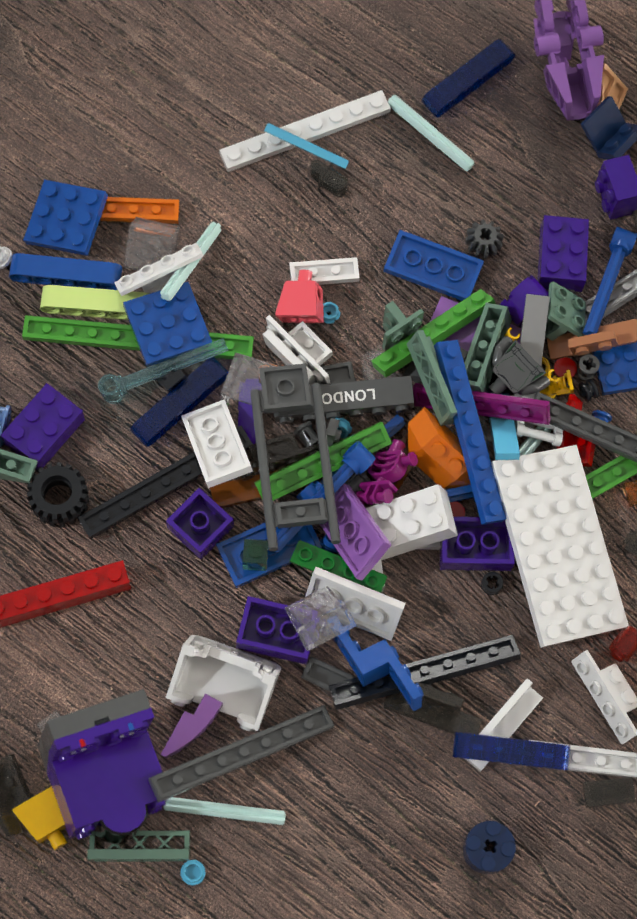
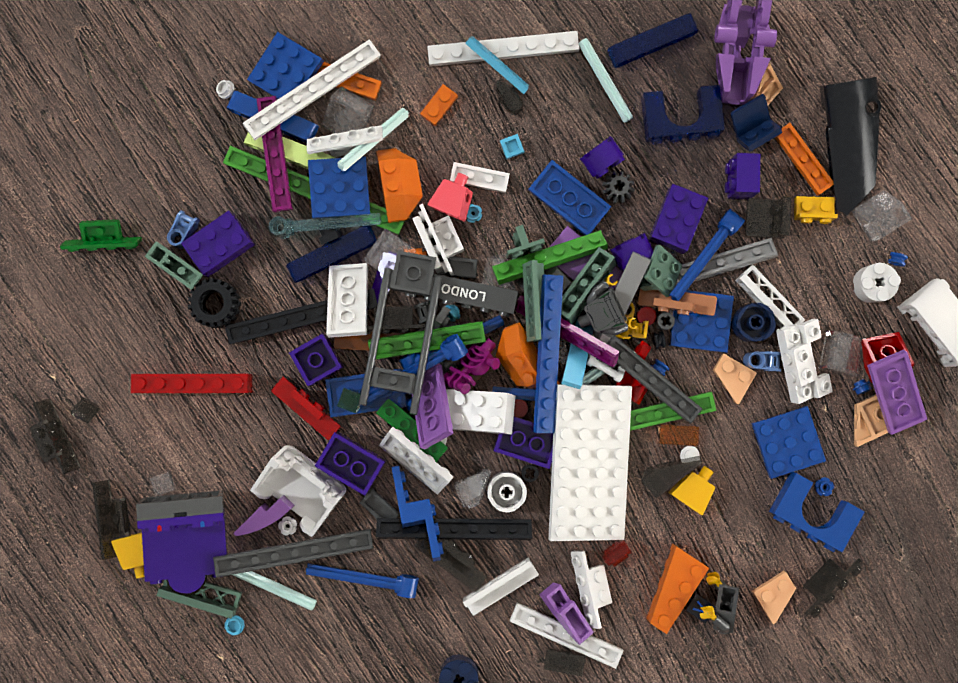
camera: 20 degrees right, 15 degrees up
(82, 308) = (275, 163): none -> magenta tile
(104, 227) = (311, 90): none -> white plate
(203, 584) = (311, 412): none -> red bracket
(222, 737) = (292, 523): none -> white plate
(234, 302) = (399, 183): none -> orange wedge
(252, 209) = (439, 105): none -> orange plate
(320, 617) = (382, 470): clear slope -> none
(350, 229) = (512, 146): none -> medium azure plate
(386, 759) = (404, 585): none -> blue piece
(431, 614) = (472, 487): none -> clear slope
(456, 211) = (601, 157): none -> dark purple brick
(466, 620) = (514, 498): none -> white brick
(509, 164) = (660, 128): none -> clear blue arch
(511, 751) = (497, 614): clear blue beam -> none
(591, 730) = (566, 612): none -> medium lavender slope

